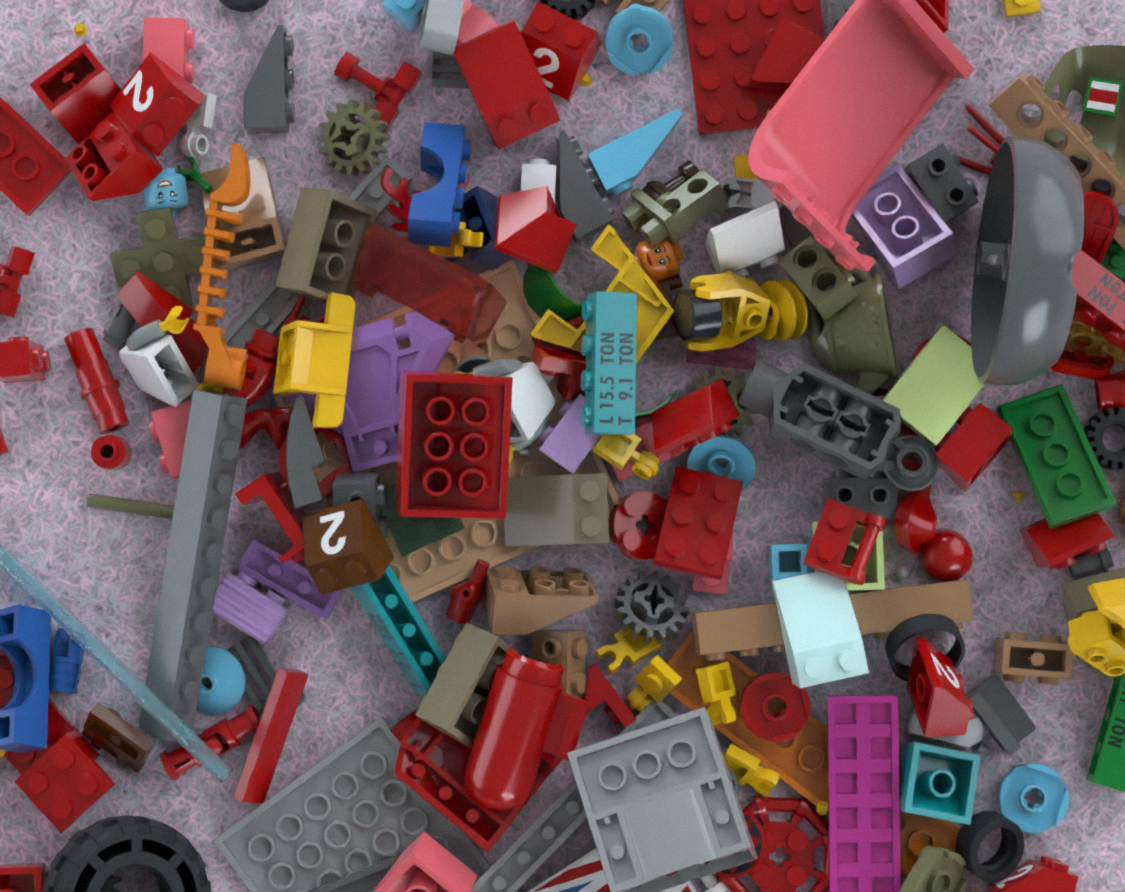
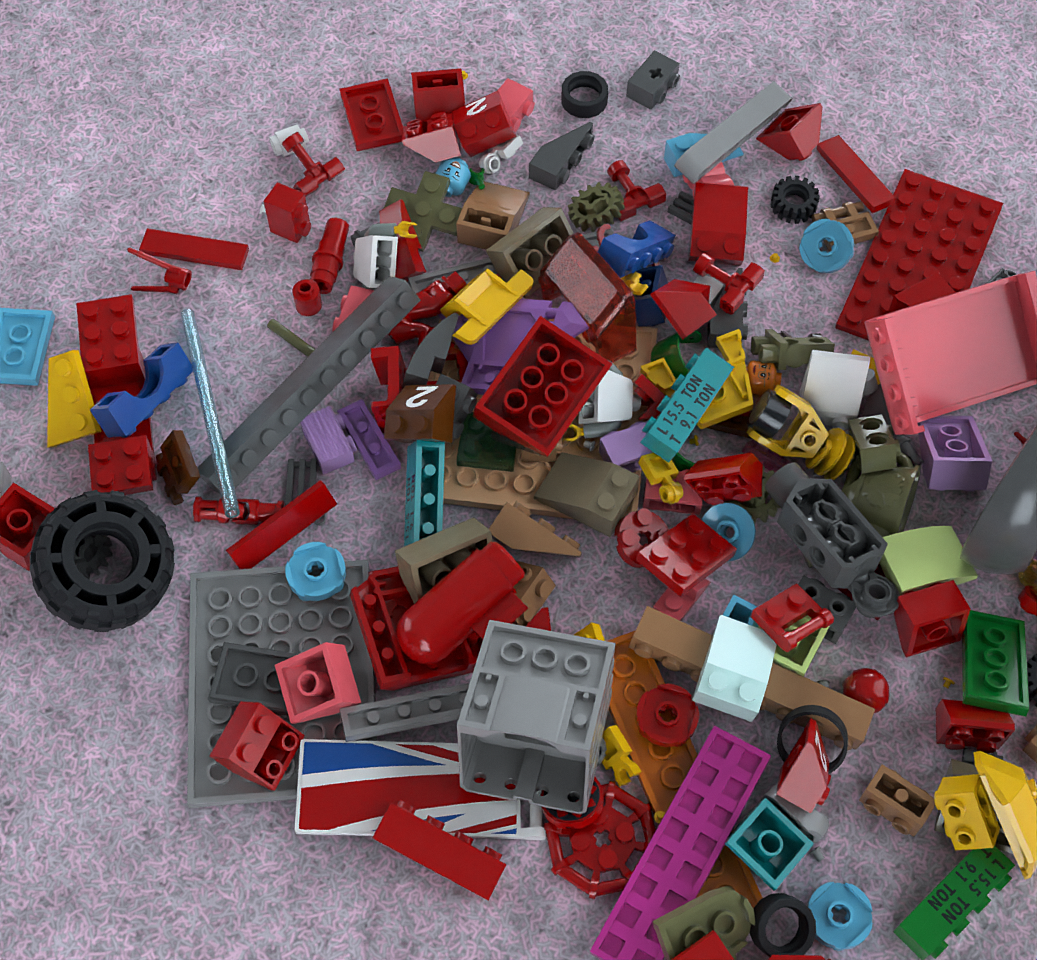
camera: 30 degrees right, 25 degrees down
(64, 667) = (178, 408): blue hinge -> none
(224, 363) = (484, 189): orange piece -> none
(227, 682) = (274, 480): medium azure dish -> none
(320, 766) = (319, 587): none -> medium azure plate
(467, 595) = (487, 510): red piece -> none
(560, 49) = (769, 226): red slope -> none
(573, 163) = (735, 285): none -> red bar
(626, 157) = (783, 309): medium azure slope -> none
(627, 649) = (579, 614): yellow plate -> none
(665, 603) = (615, 596): dark grey gear -> none
(717, 687) = (632, 674): yellow plate -> none
(915, 520) = (854, 646): red piece -> none
(940, 185) = (1000, 434): dark grey brick -> none
(1000, 714) = (846, 834): dark grey panel -> none

